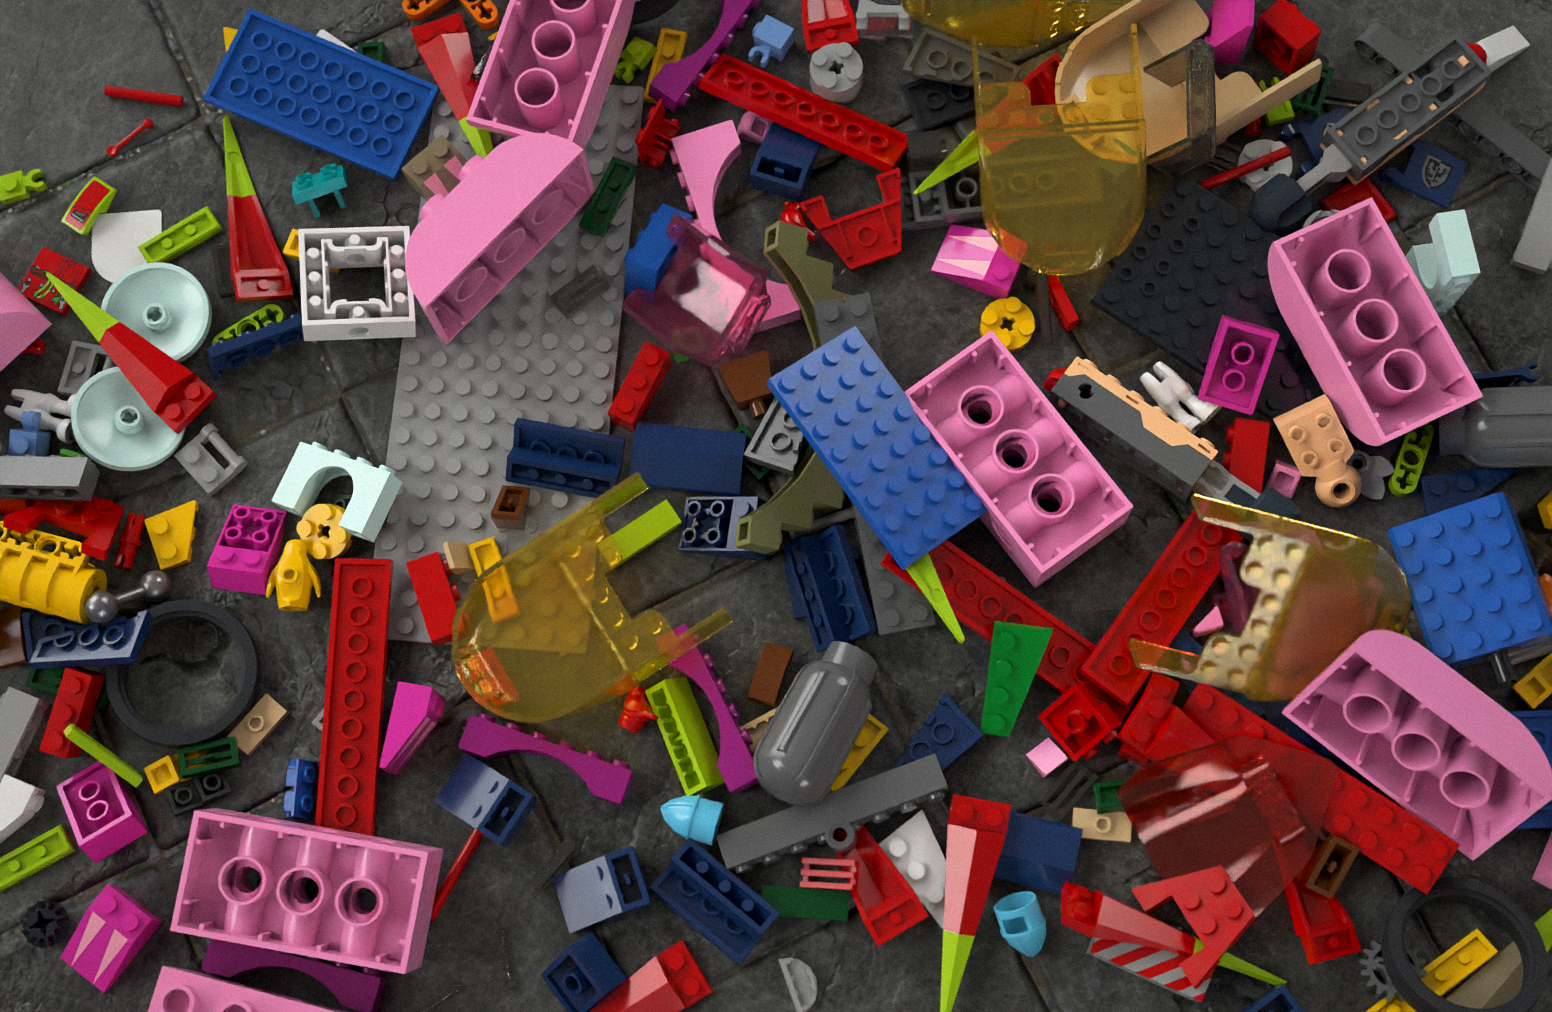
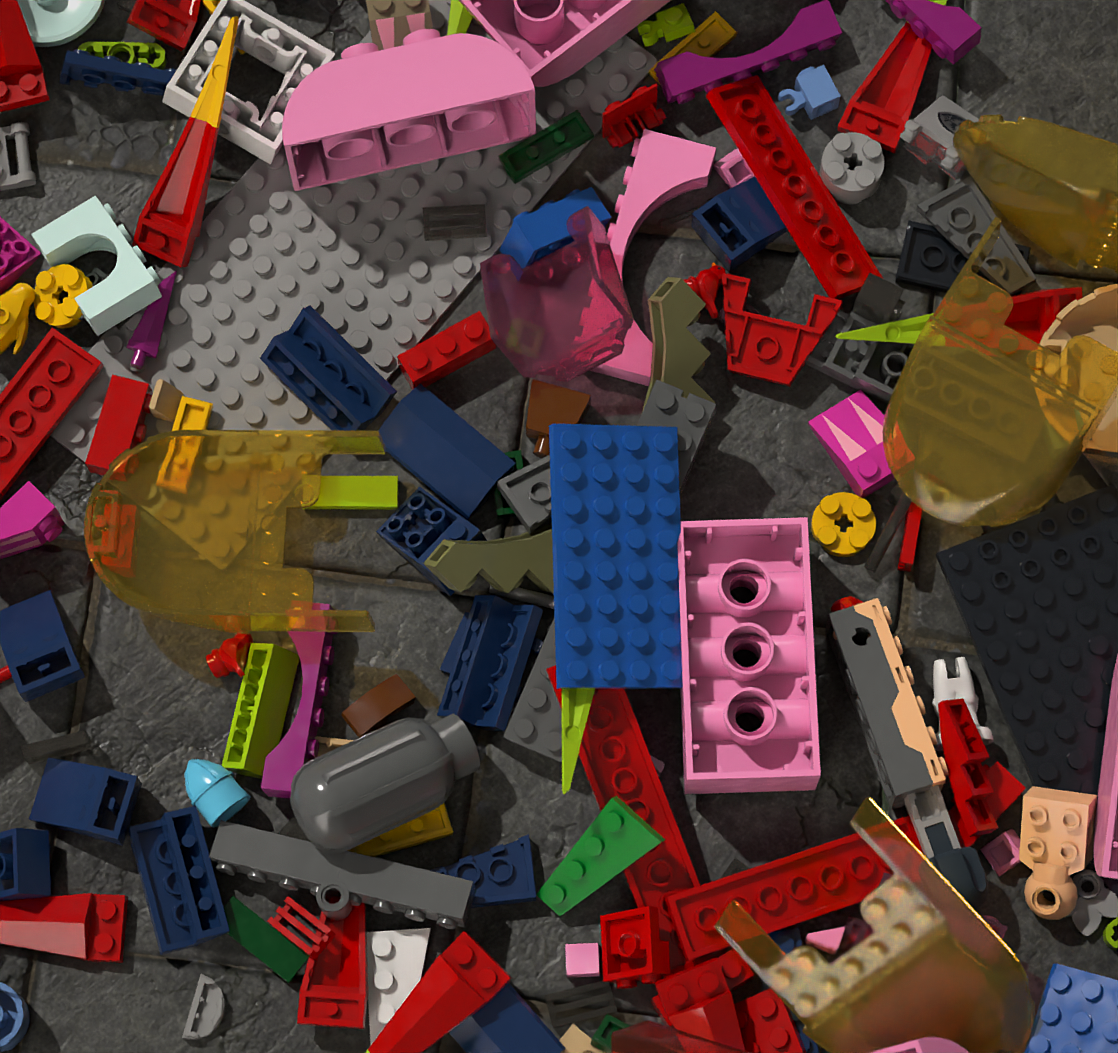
camera: 30 degrees right, 0 degrees up
(367, 410) = (179, 198): none -> red plate
(409, 515) = (149, 330): none -> magenta bar
(490, 740) = (154, 696): magenta arch -> none
(511, 508) = (246, 387): reddish brown slope -> none
(1215, 426) = (963, 757): none -> red slope
(1238, 364) = (1031, 709): dark pink slope -> none

